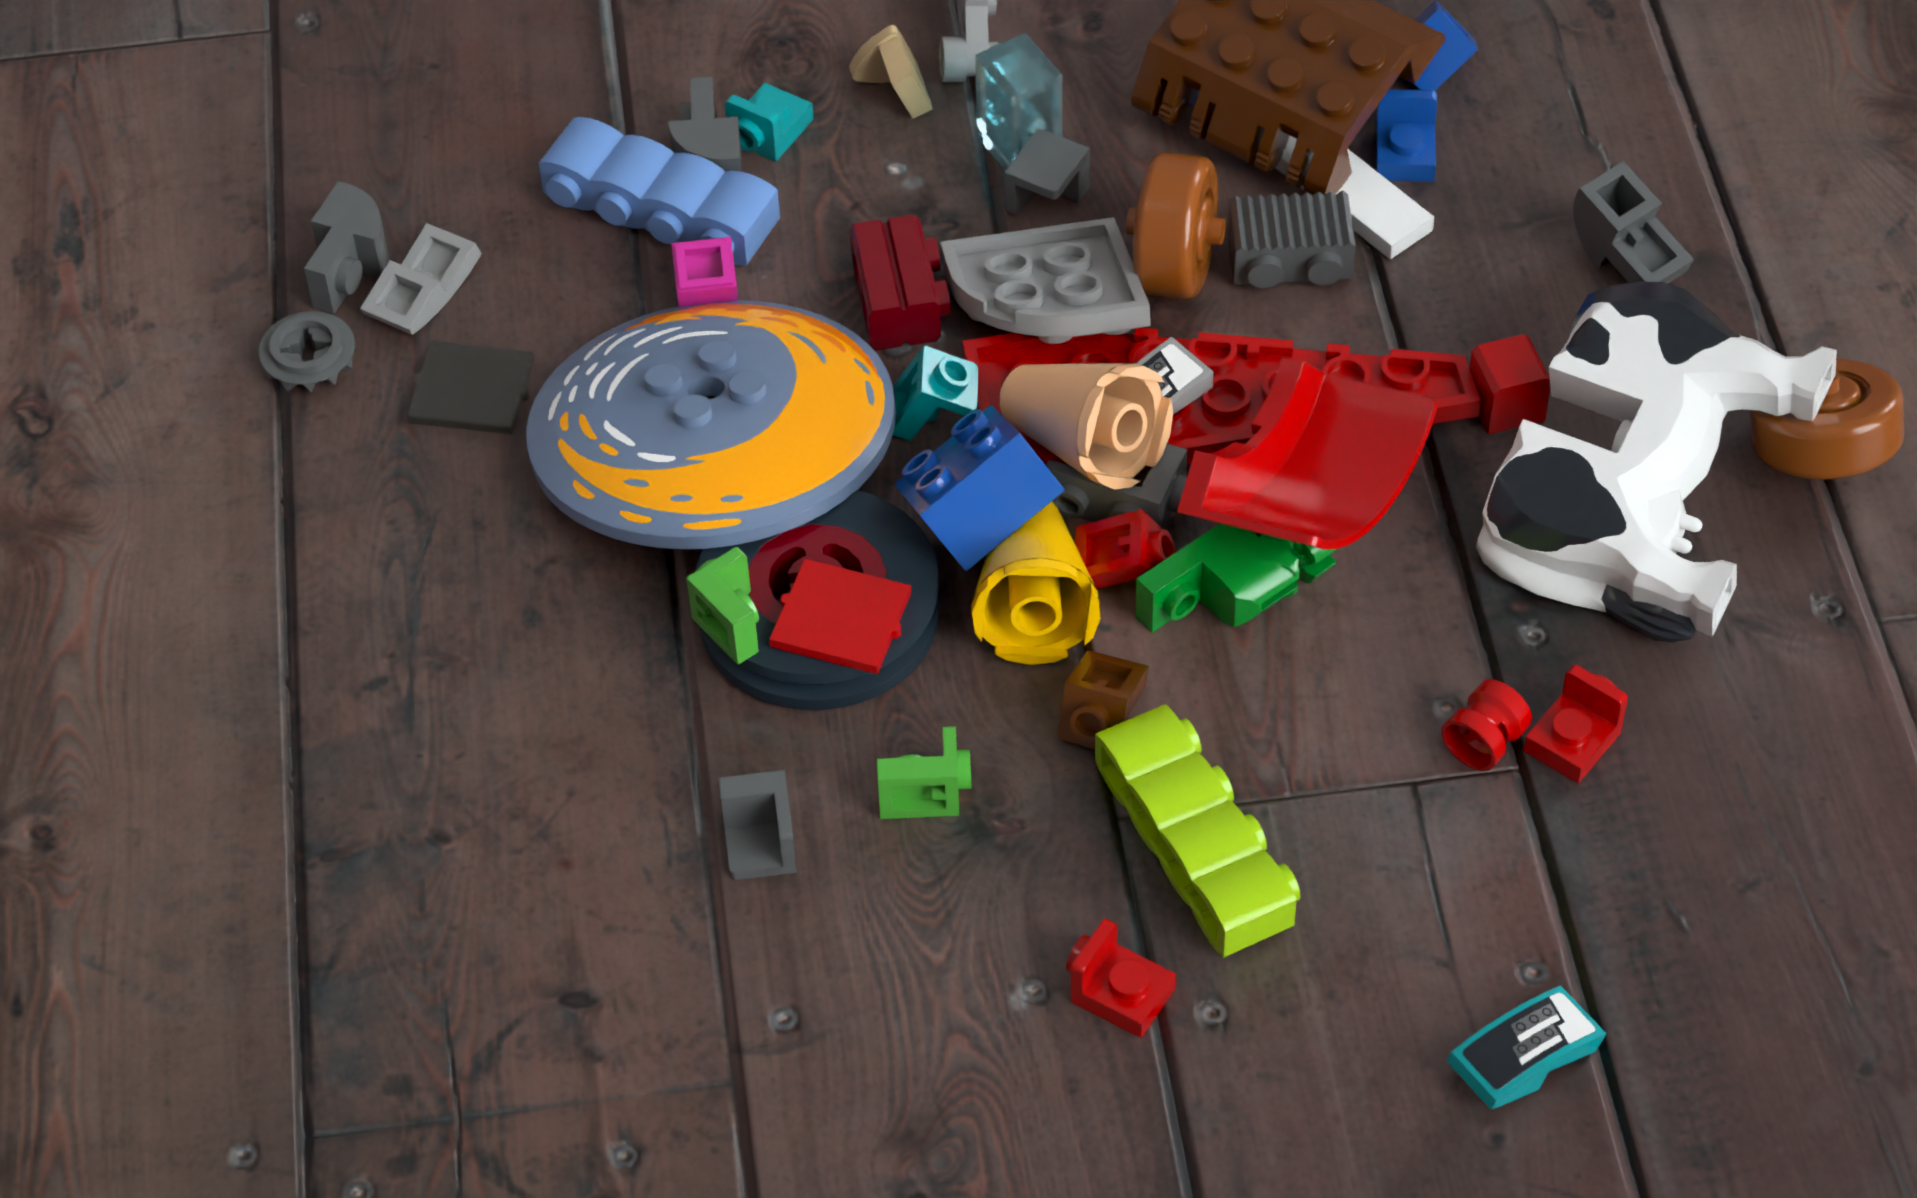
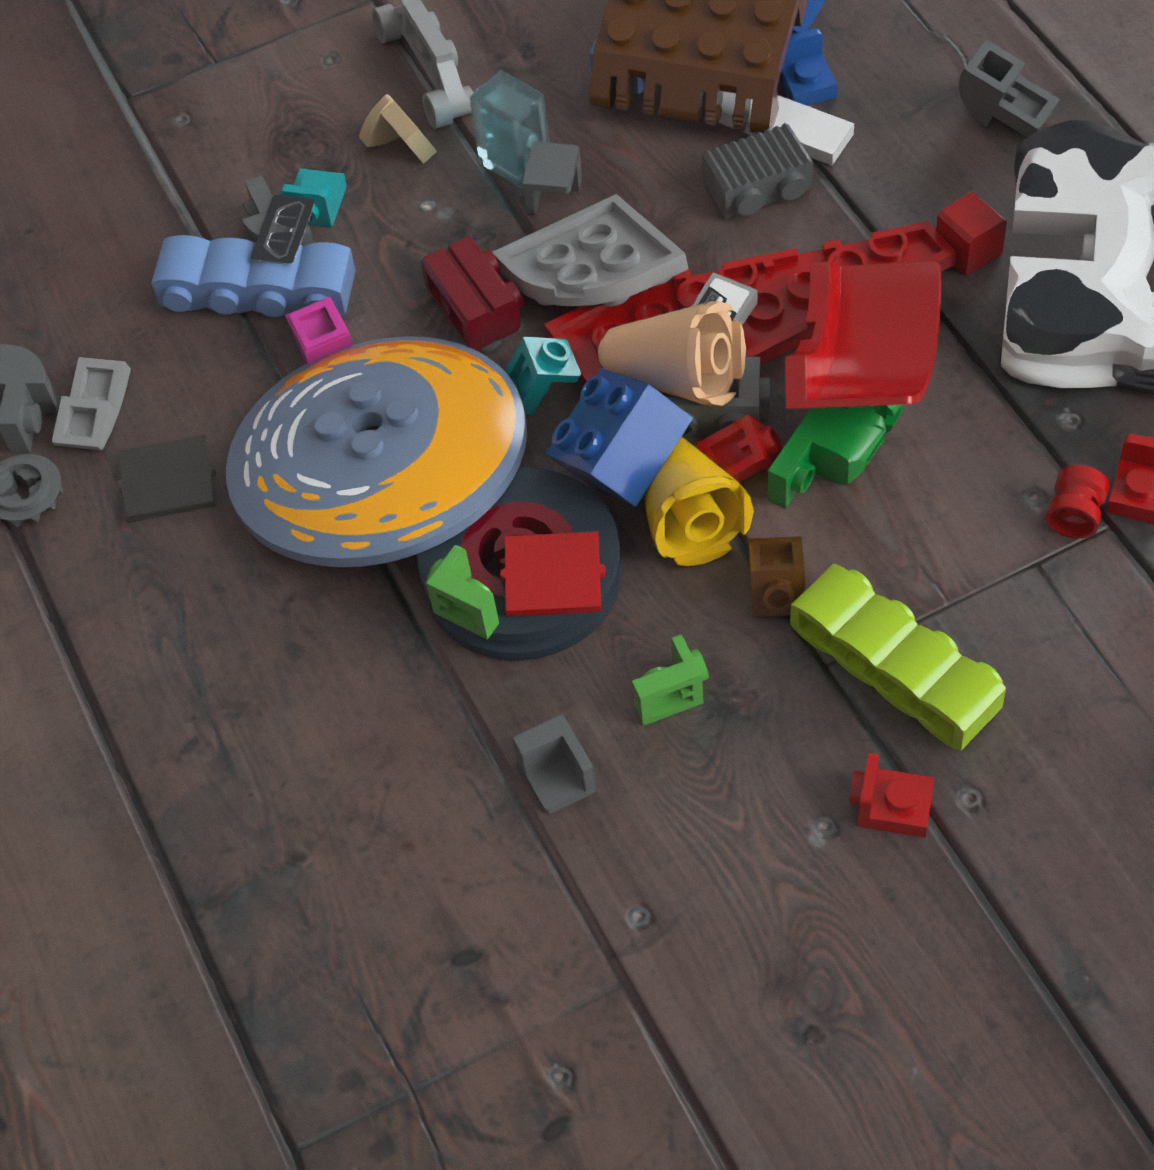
camera: 15 degrees left, 5 degrees up
(709, 145) = (282, 229): none -> black sticker
(1175, 225) = (674, 184): dark orange wheel -> none

